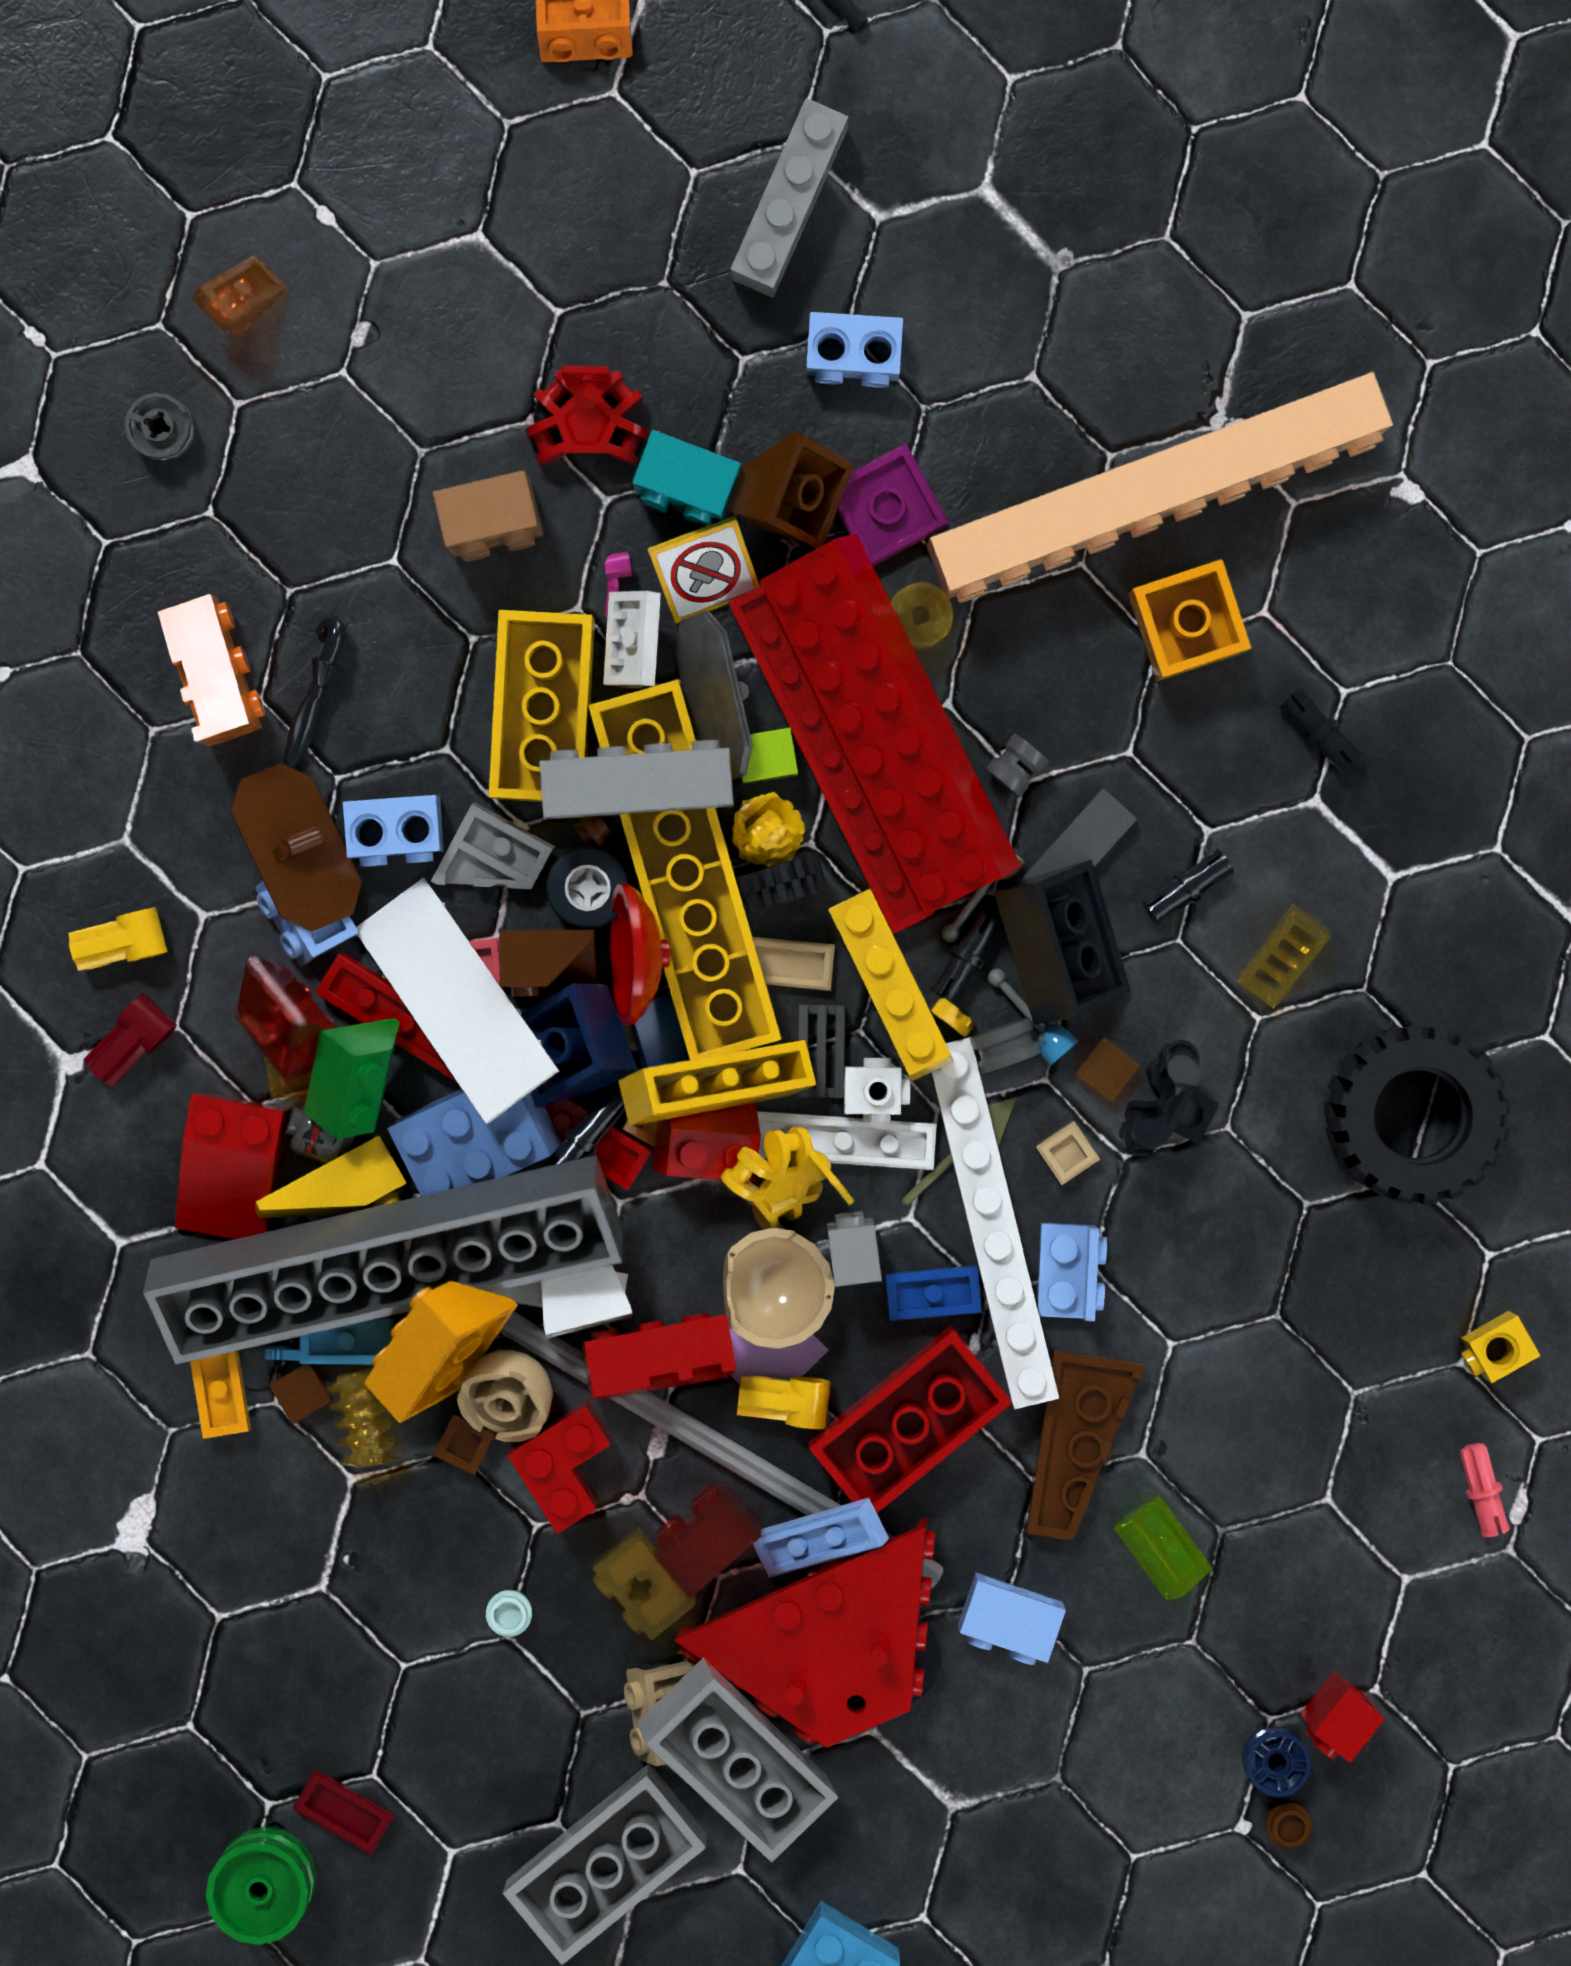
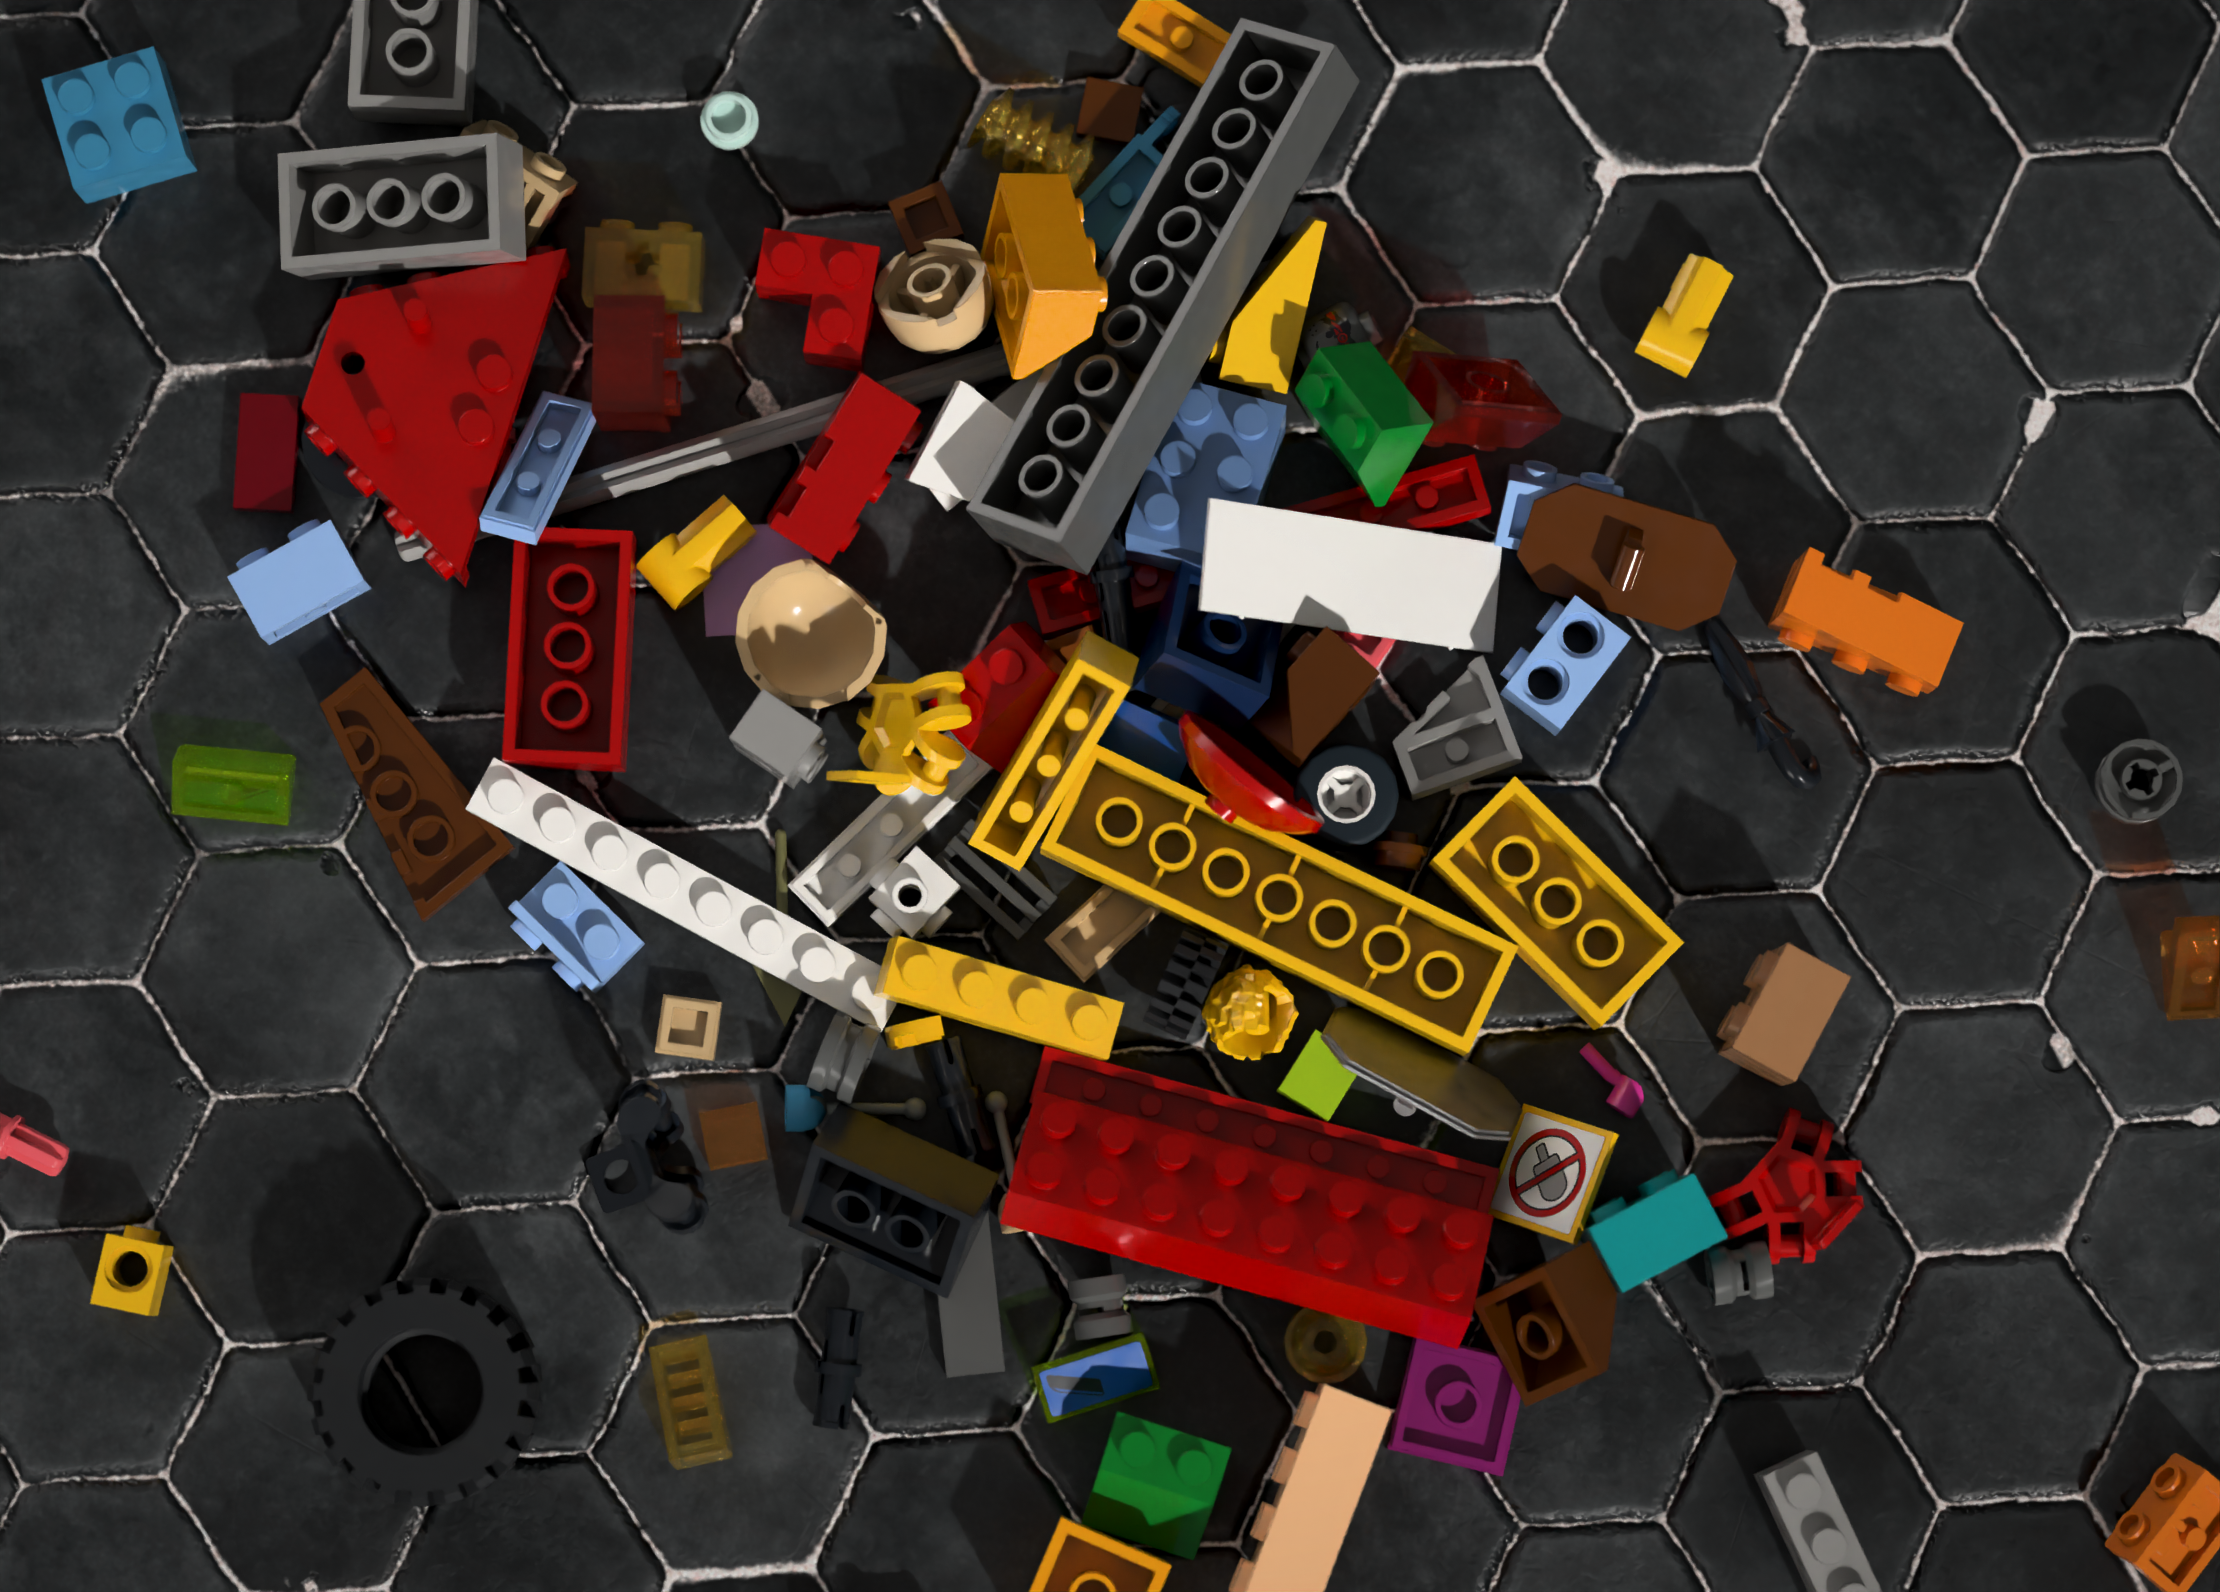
camera: 130 degrees right, 5 degrees down
(138, 1031) = (1583, 259): dark red piece -> none
(228, 1164) = (1384, 232): red slope -> none
(631, 639) = (1545, 1045): white bracket -> none
(636, 782) = (1404, 925): light grey brick -> none
(670, 416) = (1727, 1275): none -> dark grey wheel
(855, 334) = (1647, 1519): light blue brick -> none
(933, 1292) = (671, 781): blue plate -> none
(951, 1706) = (267, 453): none -> dark red tile
(1059, 732) = (1095, 1377): none -> slope
(1090, 641) = (1156, 1485): none -> green slope

